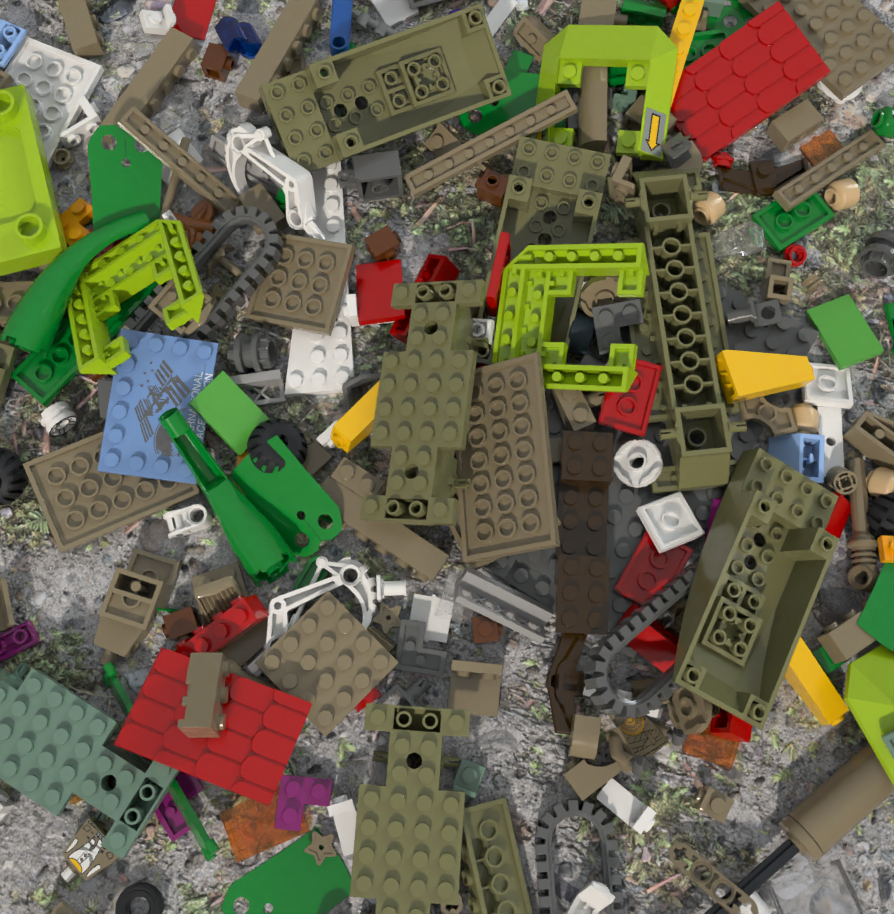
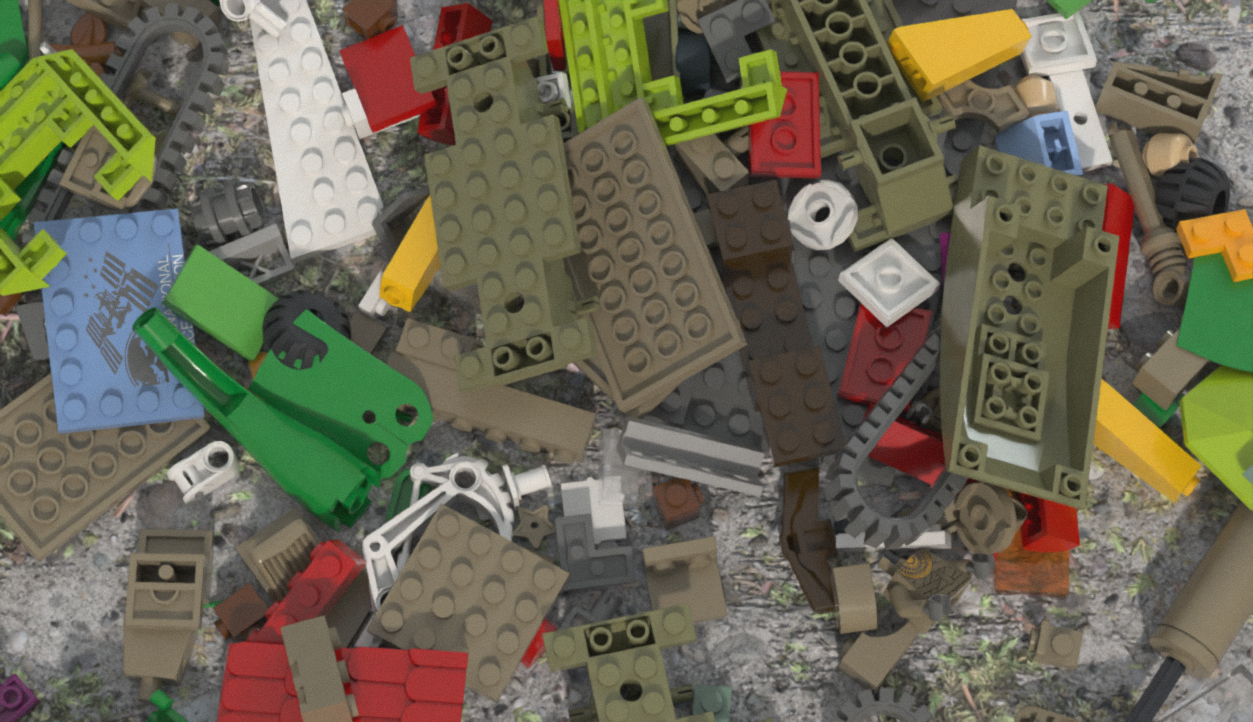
camera: 20 degrees left, 5 degrees down
(304, 286) = (275, 98): dark tan plate -> none
(626, 806) = (939, 682): white bracket -> none
(838, 476) = (1100, 164): dark tan wheel -> none

